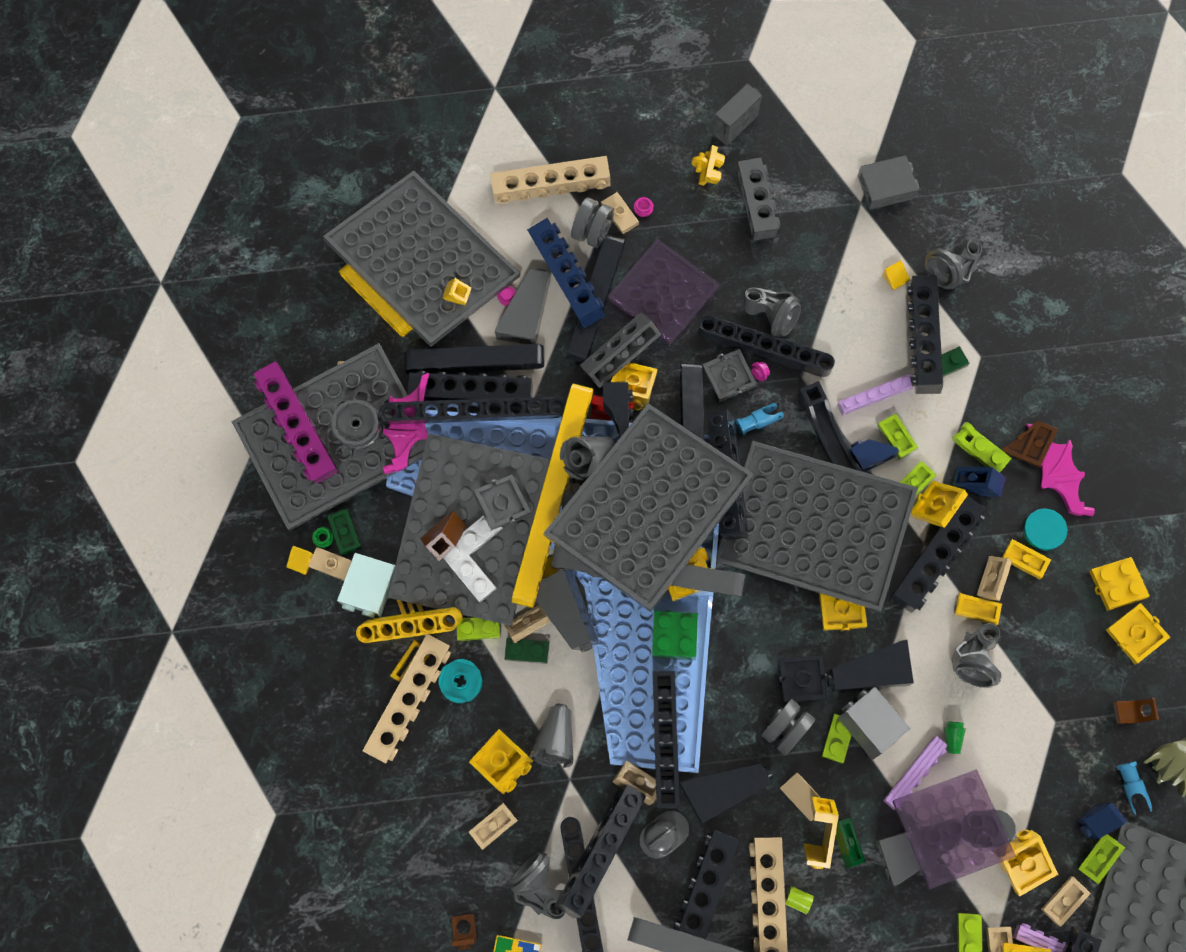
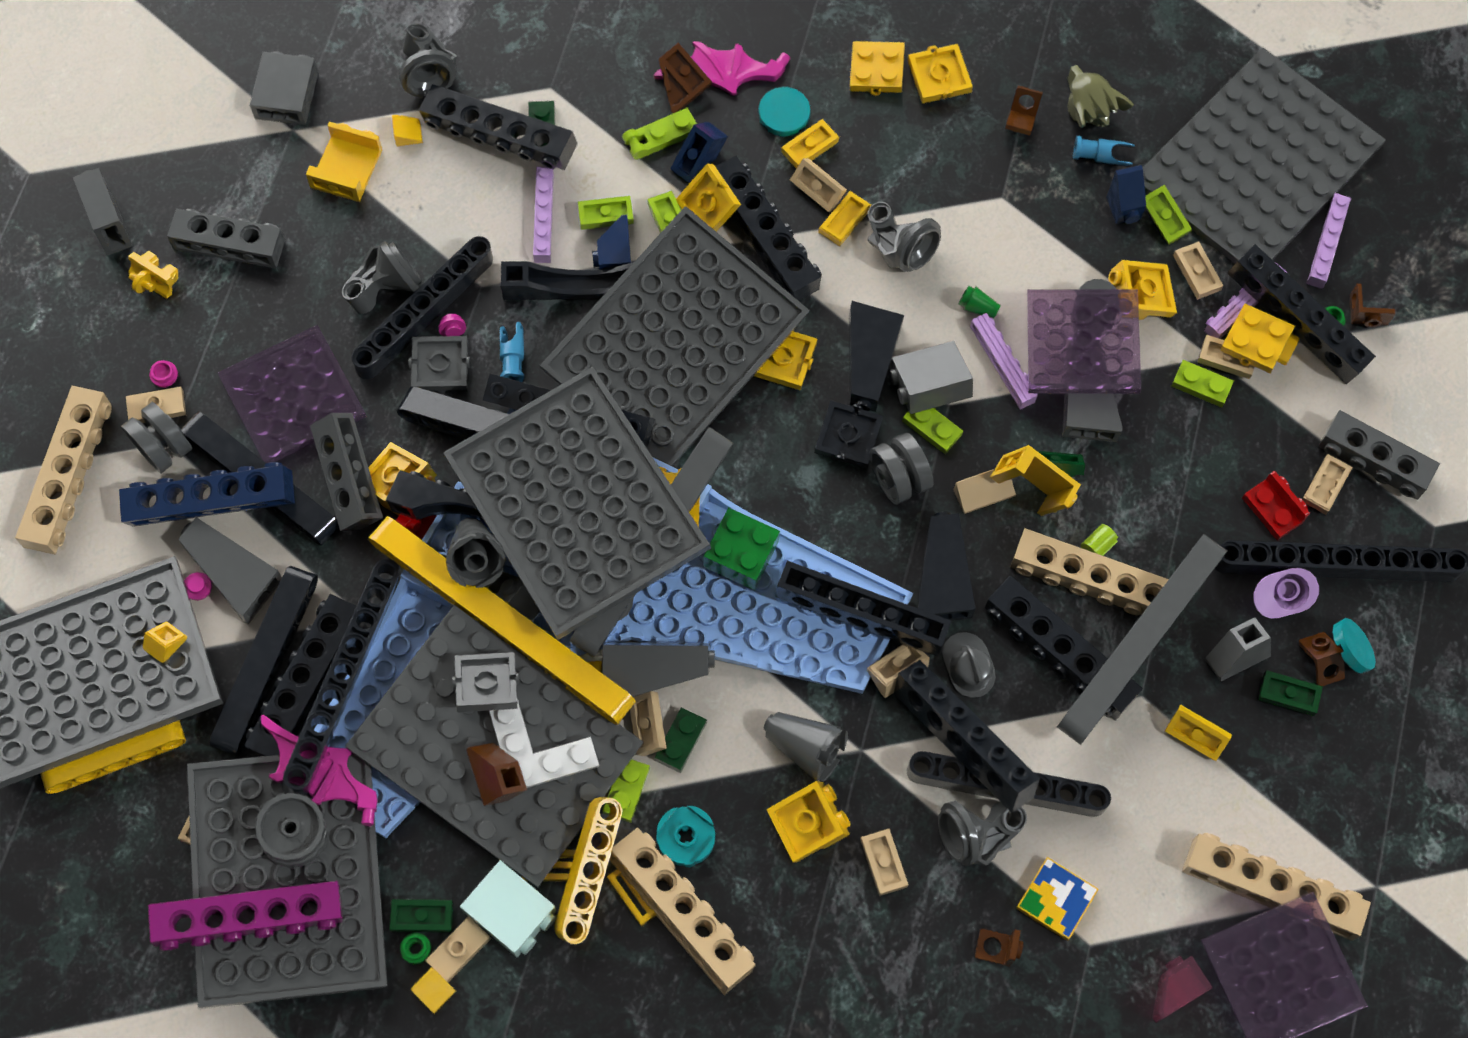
camera: 75 degrees left, 5 degrees down
(851, 248) = (346, 162): none -> yellow panel

